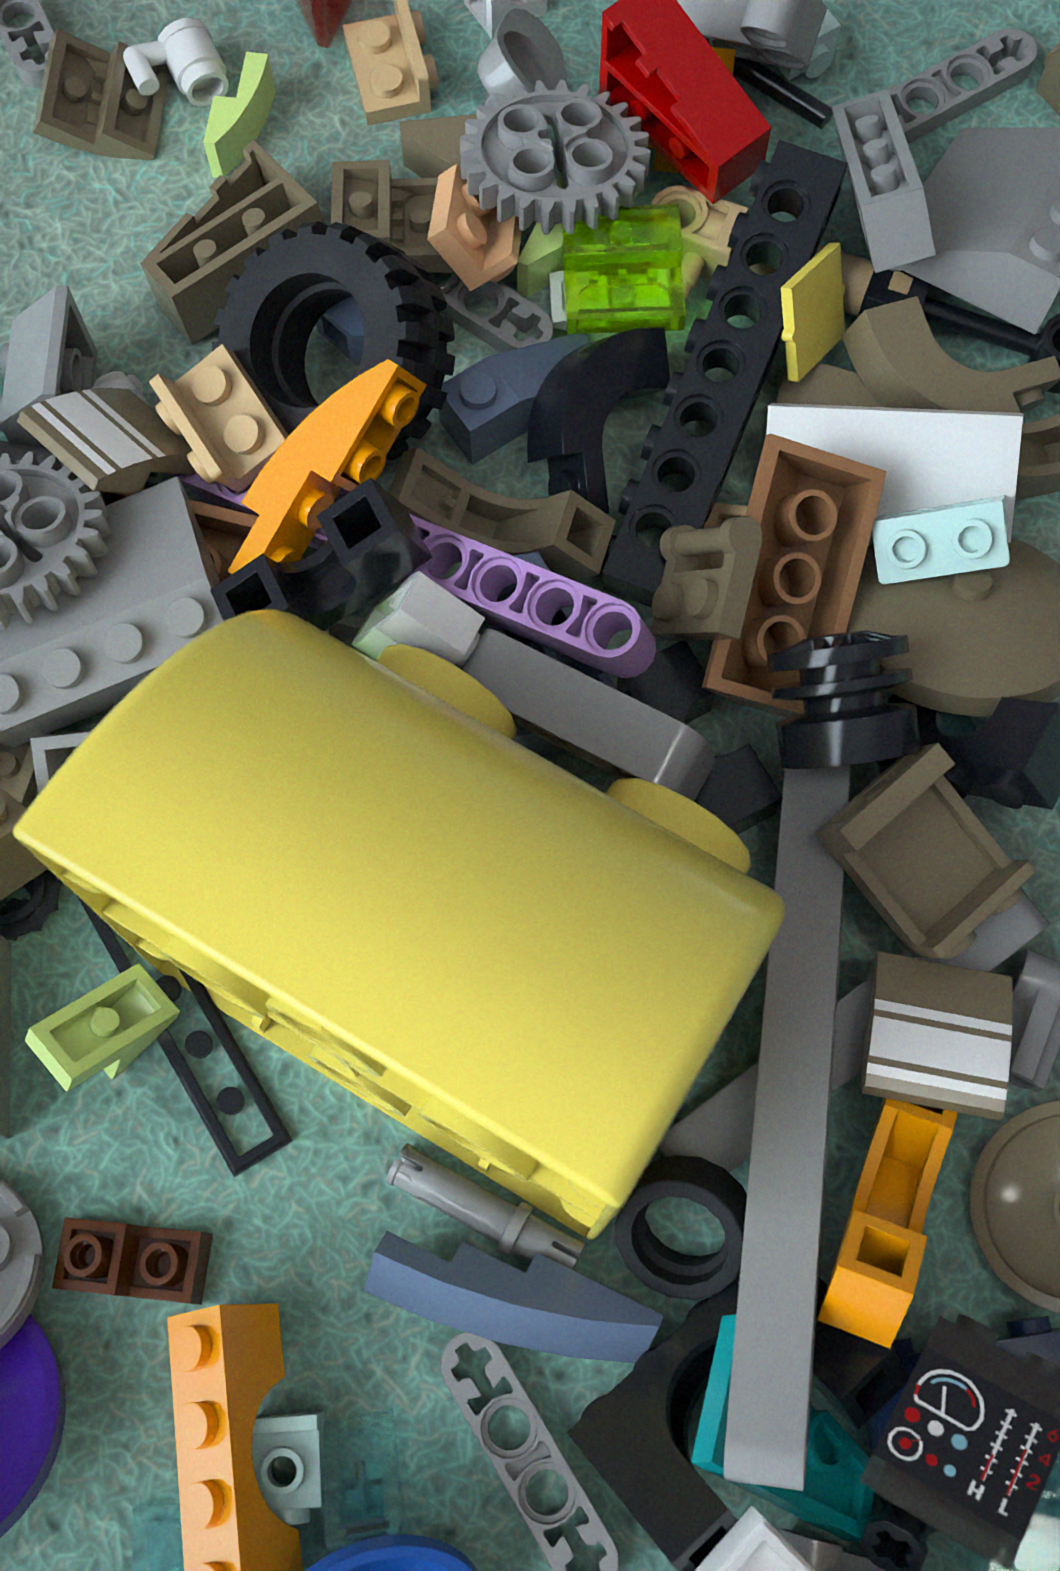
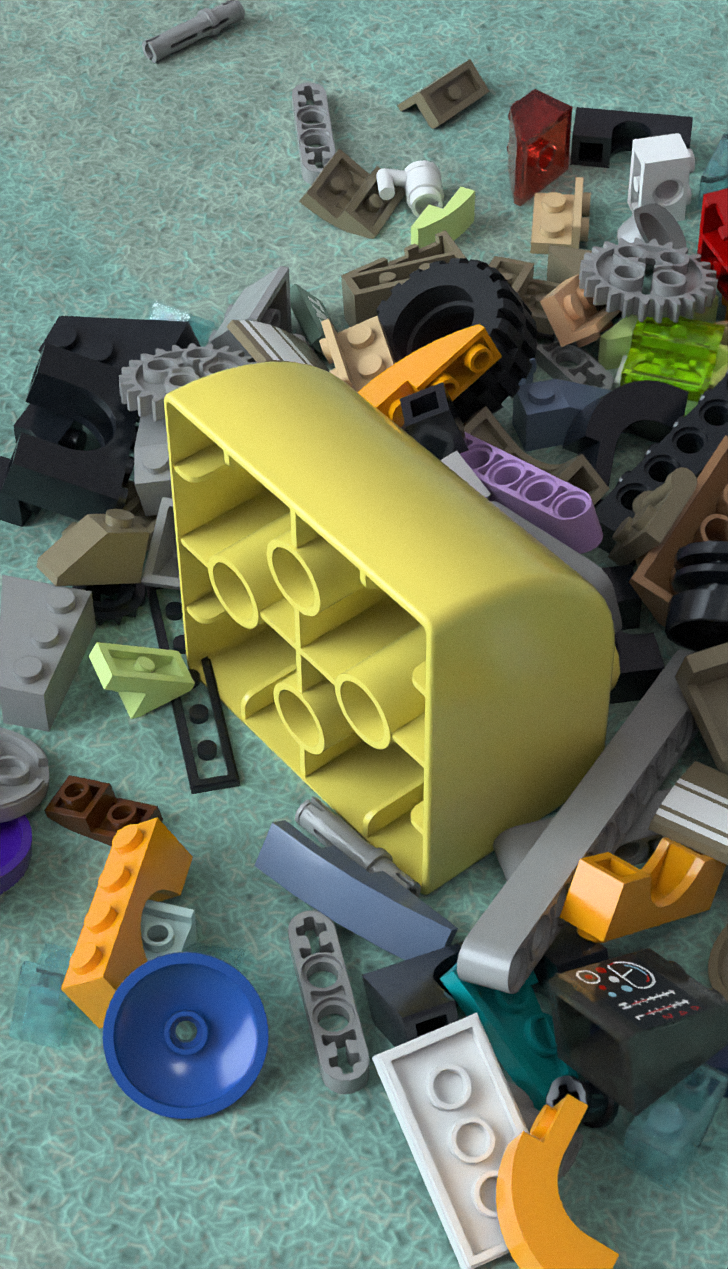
camera: 20 degrees right, 25 degrees down
(127, 336) = (309, 314): none -> sand green tile
(663, 1267) = (463, 864): black tyre -> none

